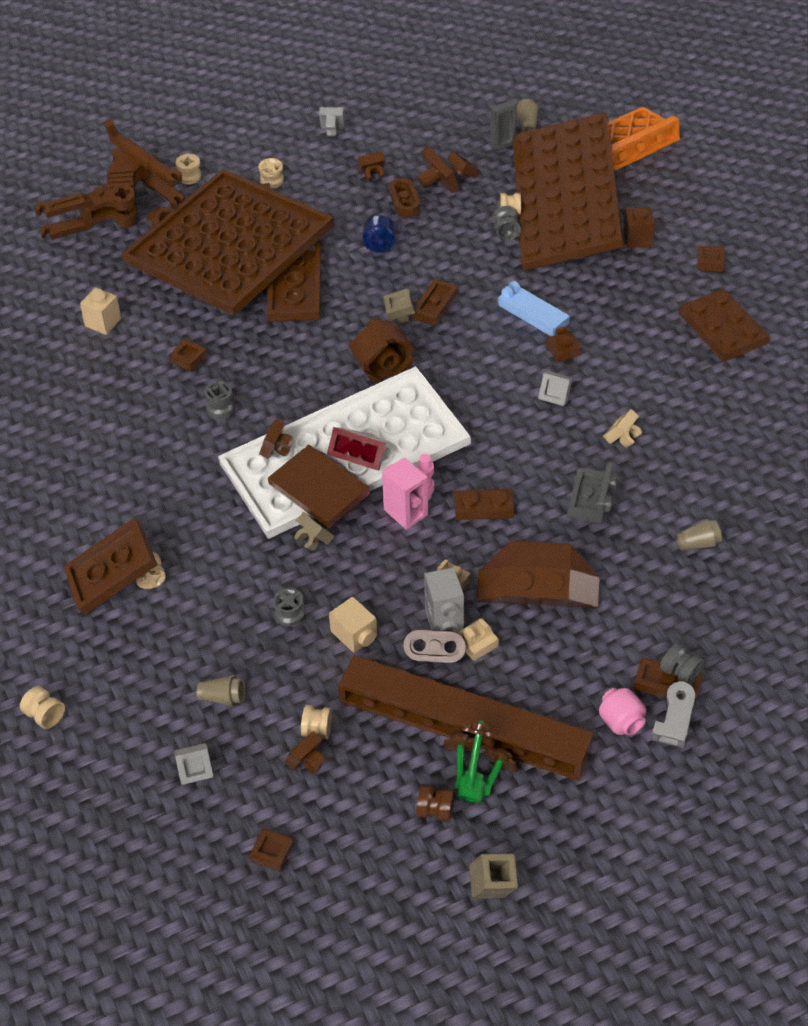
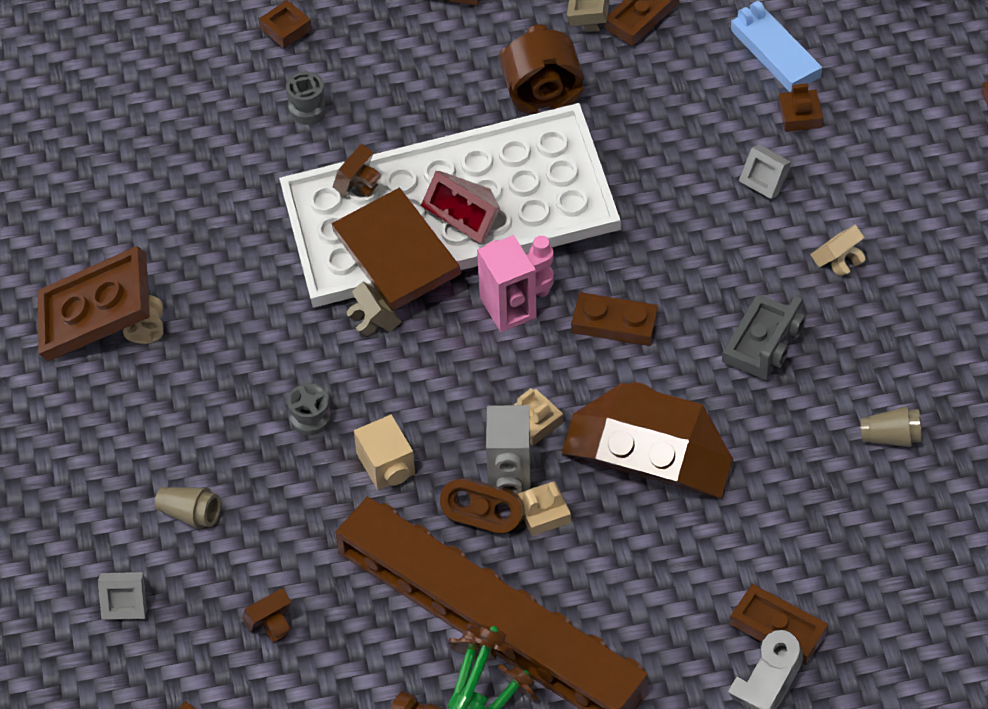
camera: 15 degrees right, 5 degrees up
(317, 721) = (295, 575): tan wheel -> none
(623, 711) = (702, 652): bright pink head -> none
(682, 664) = (798, 606): dark grey wheel -> none

